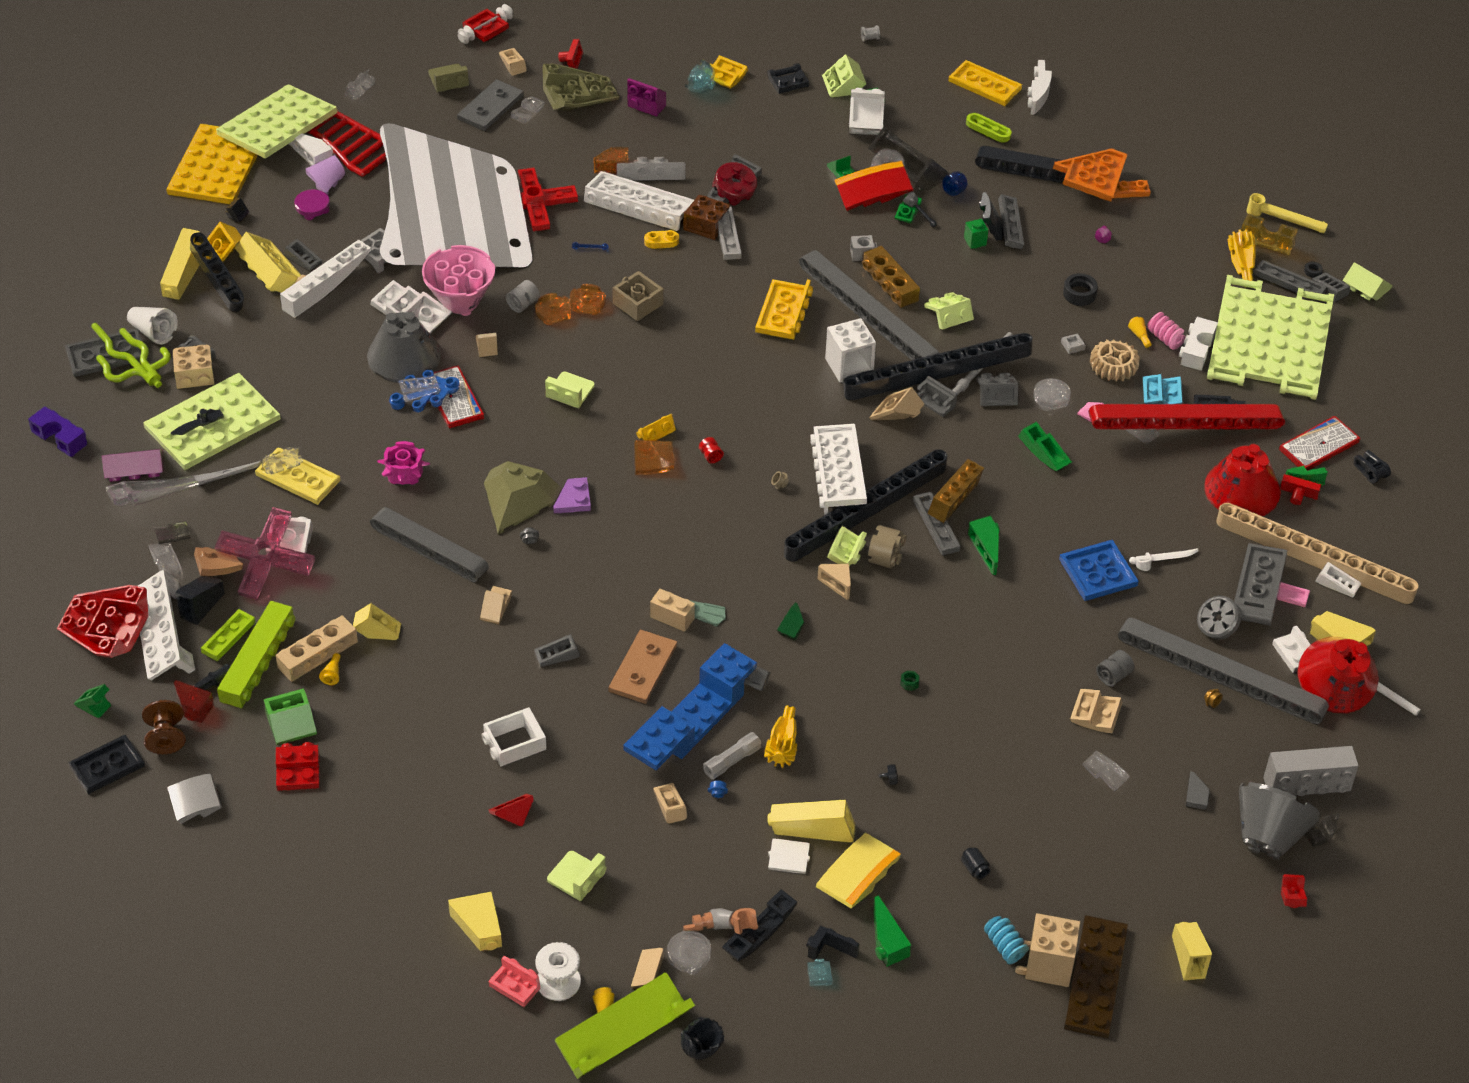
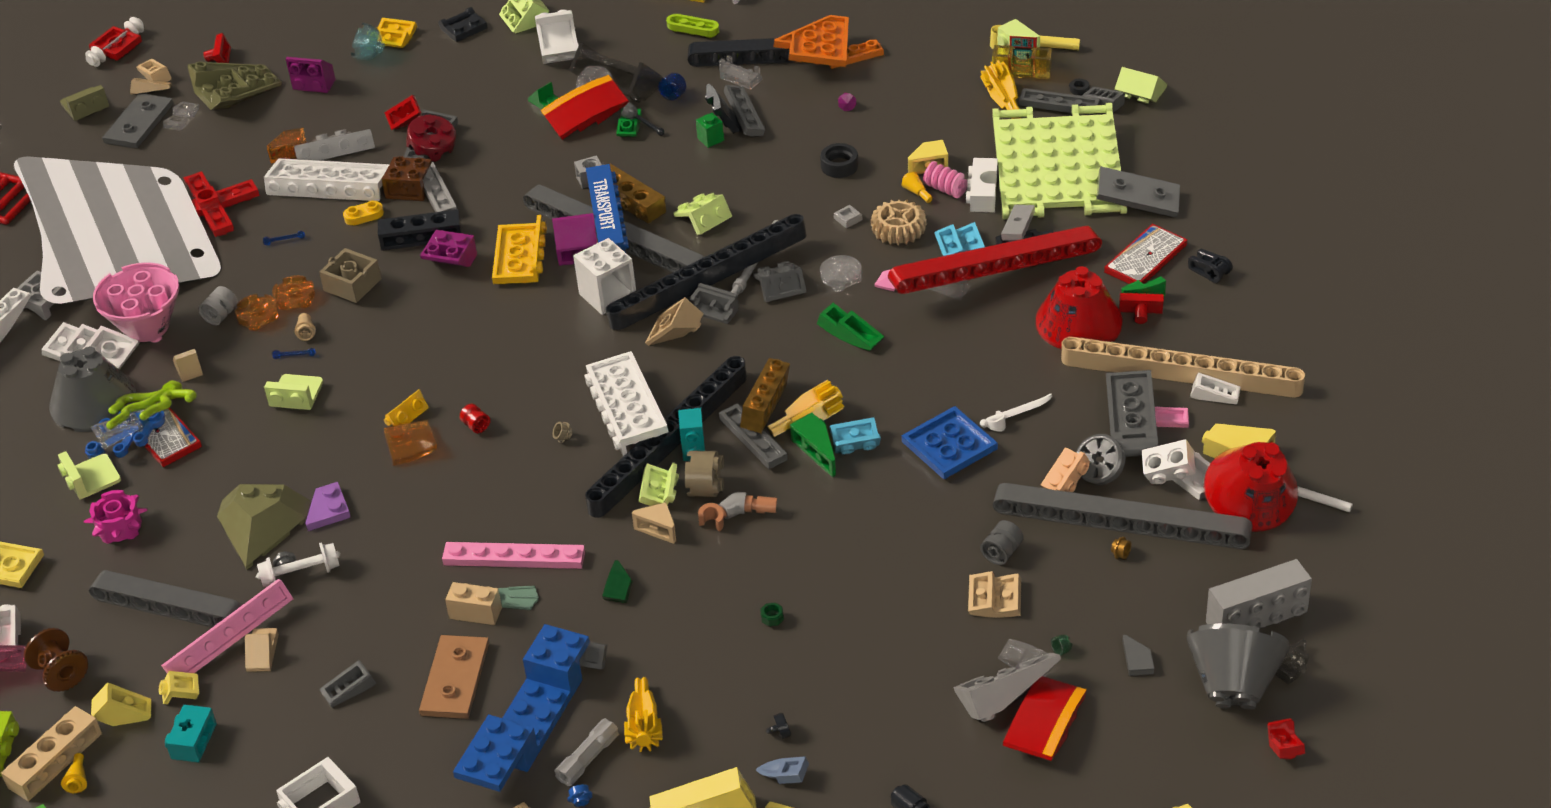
camera: 10 degrees left, 5 degrees down
(329, 565) = (61, 666): none -> reddish brown hose
(389, 421) = (89, 475): none -> yellowish green bracket
(425, 618) = (179, 685): none -> light yellow bracket
(426, 660) = (190, 733): none -> teal brick
(468, 363) = (148, 402): none -> lime plant
(472, 584) = (230, 629): none -> bright pink plate
(502, 73) = (144, 85): none -> tan slope
(513, 541) = (328, 556): none -> white piece
(561, 351) = (277, 354): none -> clear blue hinge
(589, 334) = (305, 328): none -> tan cone
(705, 267) = (416, 229): none -> black brick
(714, 576) = (513, 555): none -> bright pink plate
(716, 154) = (403, 113): none -> red slope
(727, 292) = (450, 248): none -> magenta slope
(833, 307) = (573, 236): none -> magenta slope
(867, 286) = (606, 205): none -> blue brick
(885, 811) = (785, 769): none -> sand blue plate
(886, 508) = (691, 431): none -> teal brick
(903, 580) = (733, 505): none -> nougat piece
(1000, 507) = (821, 401): none -> yellow piece
(1015, 185) = (738, 74): none -> clear hinge
(1021, 544) = (855, 435): none -> medium azure bracket
(1066, 793) = (992, 694): none -> light grey wedge
(1105, 823) = (1044, 718): none -> red slope
(1137, 766) = (1061, 644): none -> clear green hinge
(1158, 302) = (925, 154): none -> light yellow slope
(1187, 621) = (1066, 471): none -> light nougat bracket
(1216, 387) = (1018, 222): none -> light grey tile
(1272, 211) = (1019, 36): none -> yellowish green slope
(1276, 631) = (1167, 459): none -> white brick
(1331, 383) = (1138, 191): none -> dark grey plate

